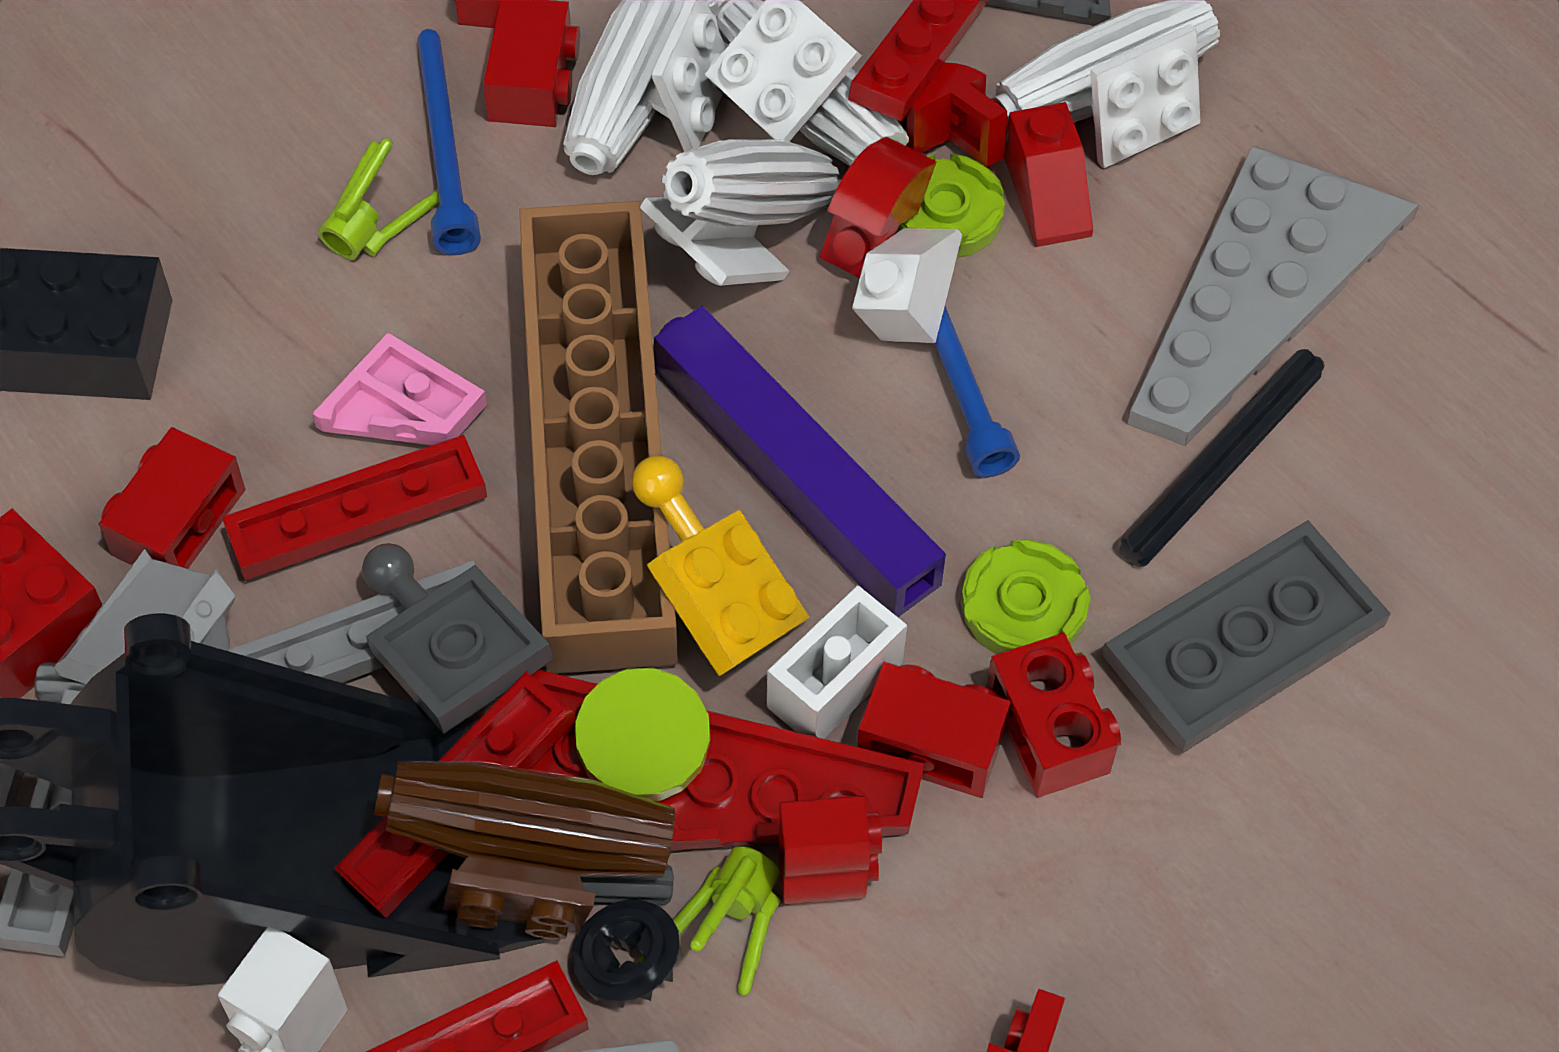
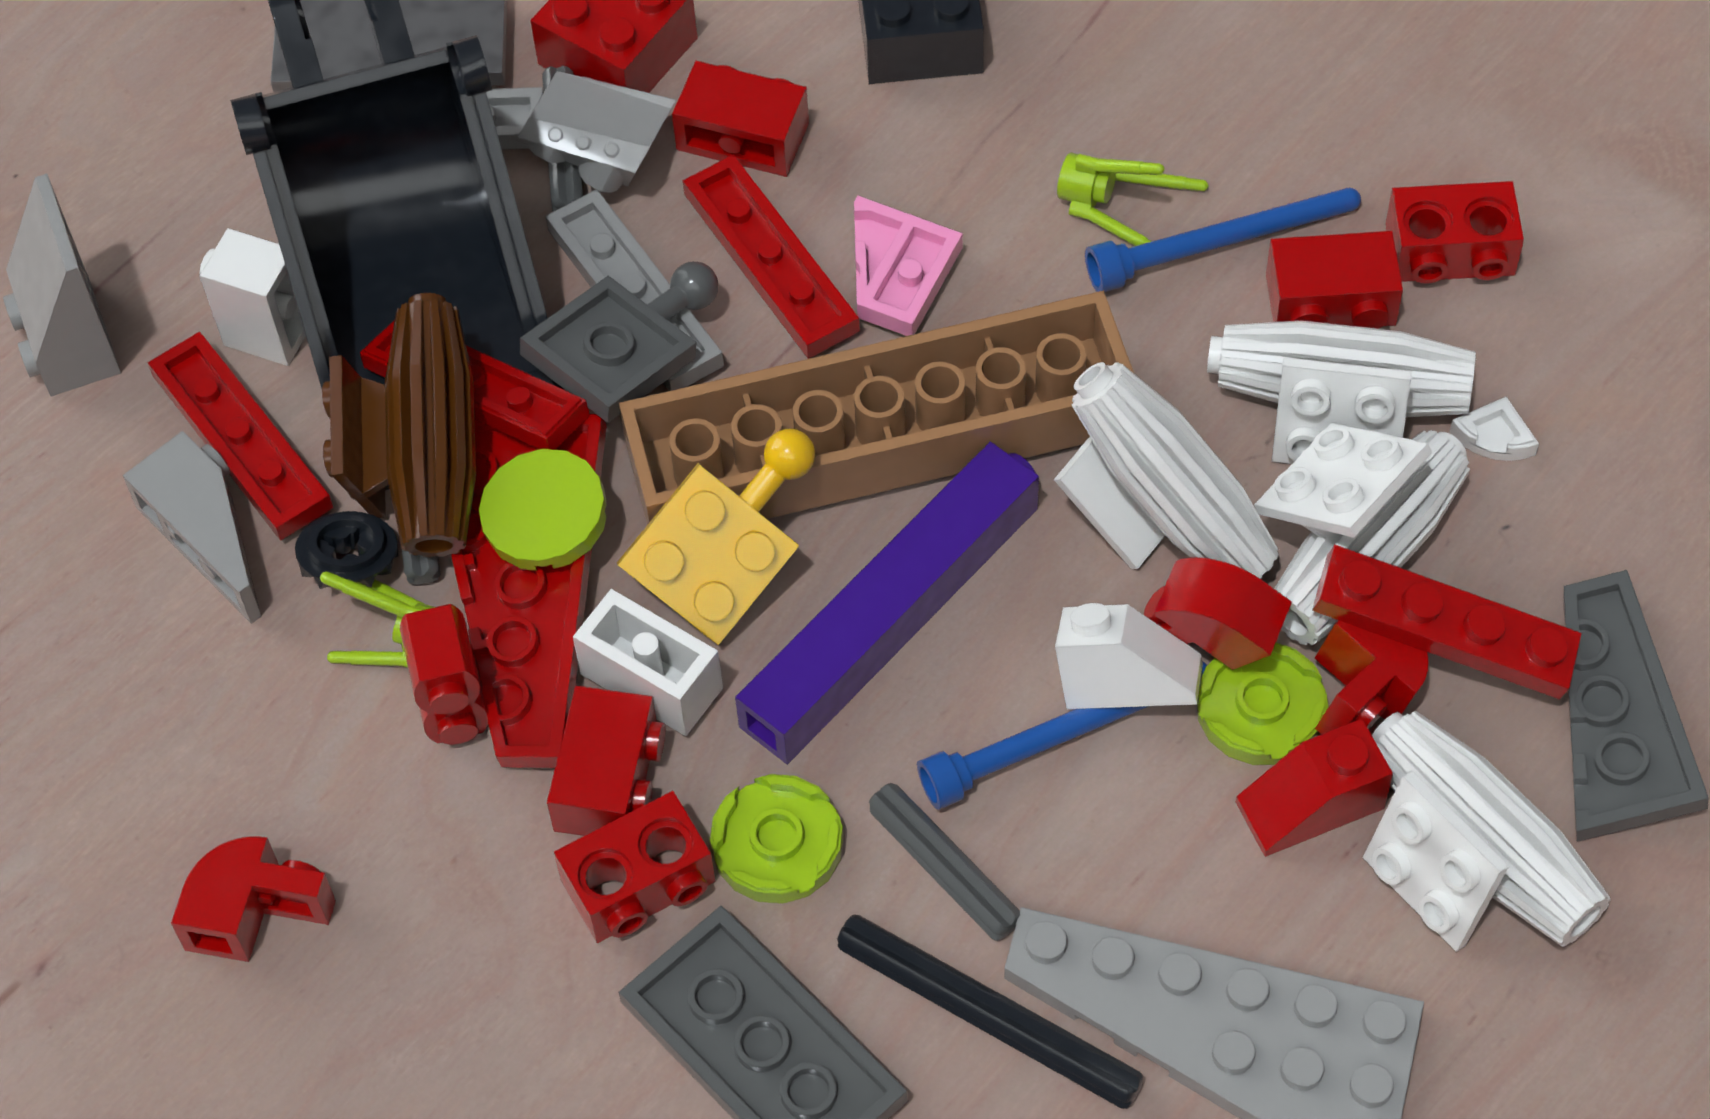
camera: 85 degrees right, 0 degrees up
(1070, 466) = (944, 861): none -> dark grey axle

